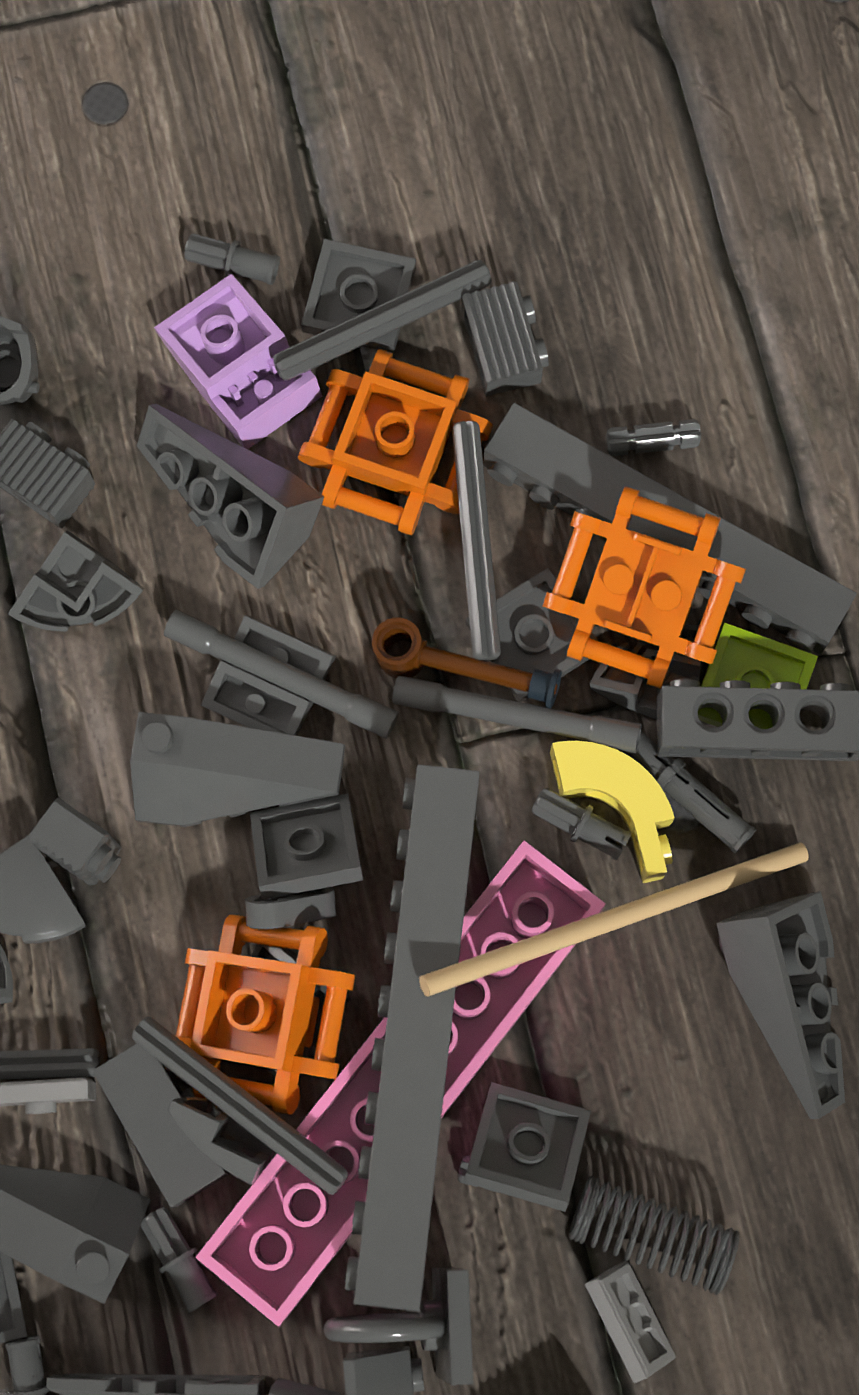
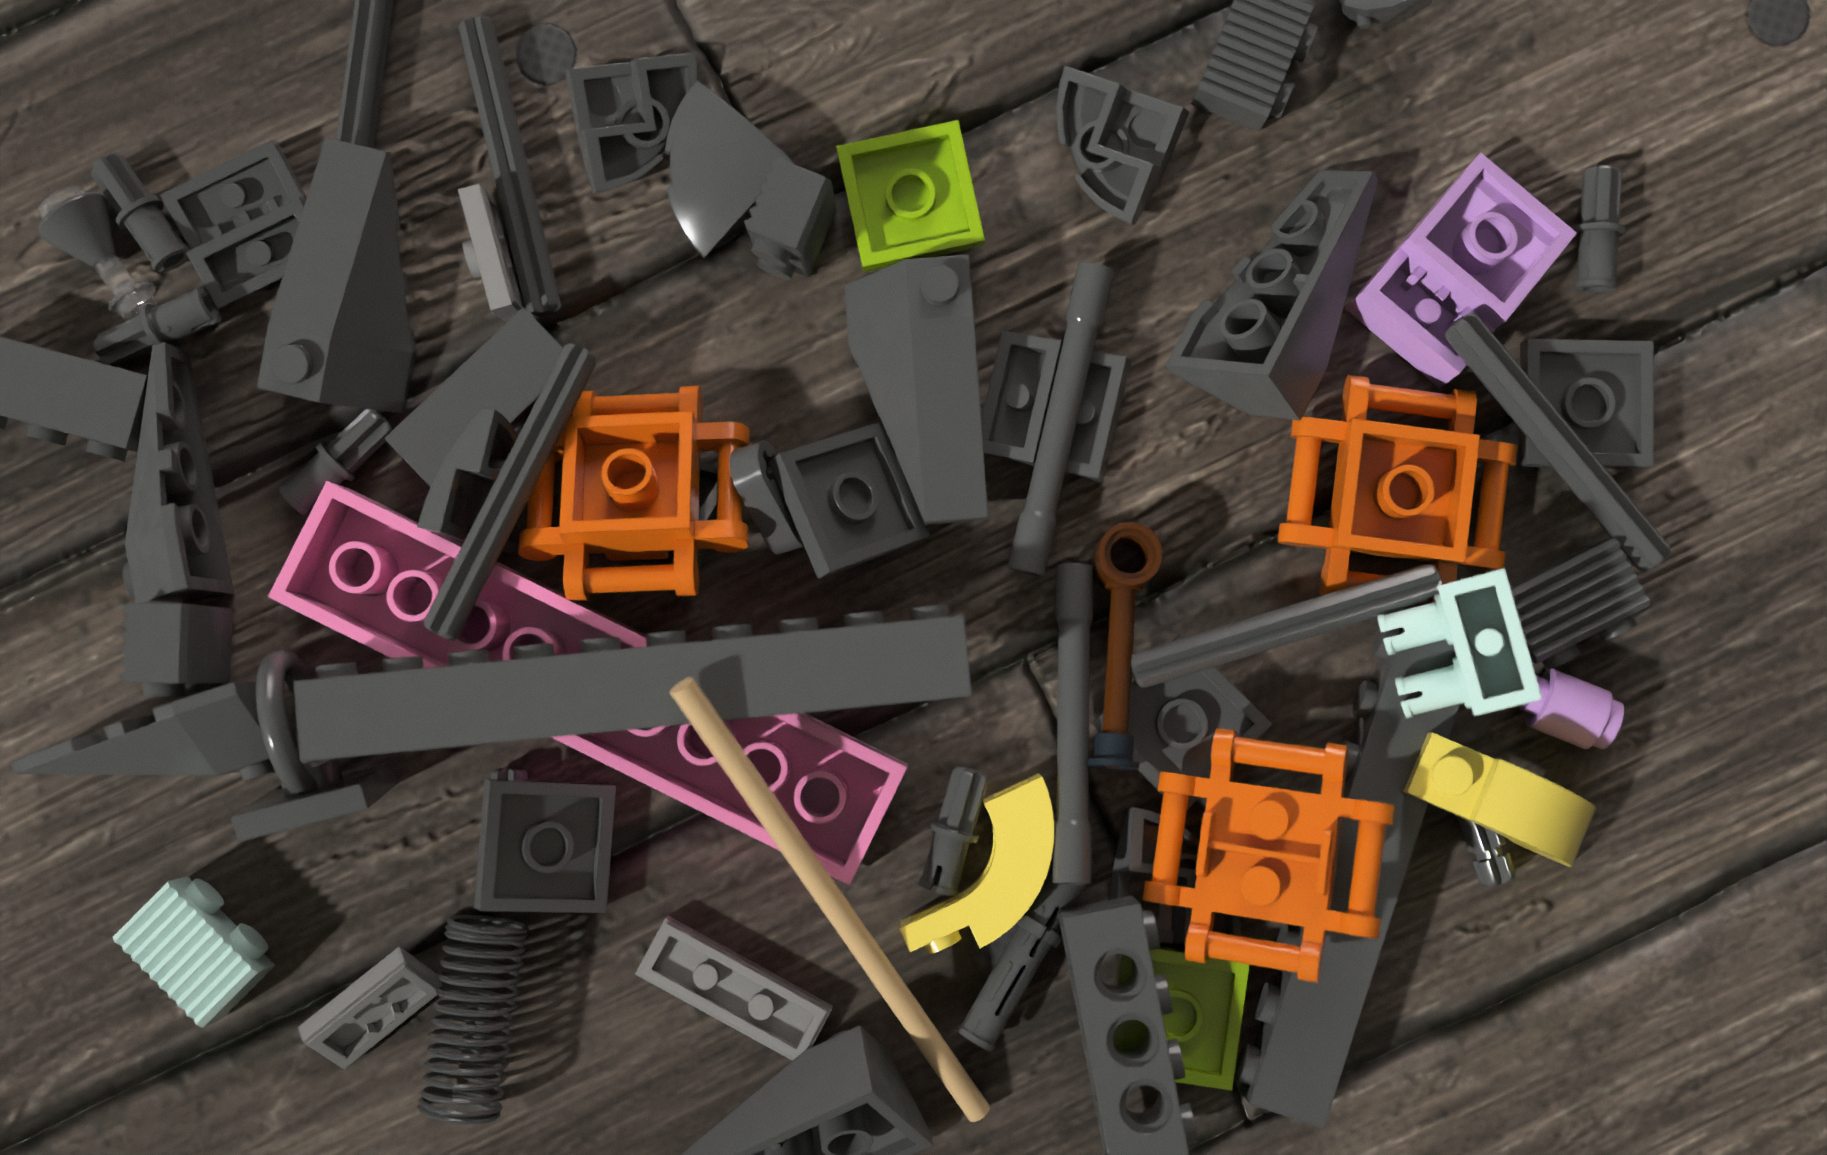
camera: 80 degrees right, 10 degrees up
(78, 752) = (910, 195): none -> lime plate
(520, 394) = (1489, 642): none -> light aqua brick
(582, 354) = (1574, 711): none -> lavender brick
(634, 414) = (1501, 798): none -> light yellow arch
(671, 1024) = (733, 989): none -> light grey tile

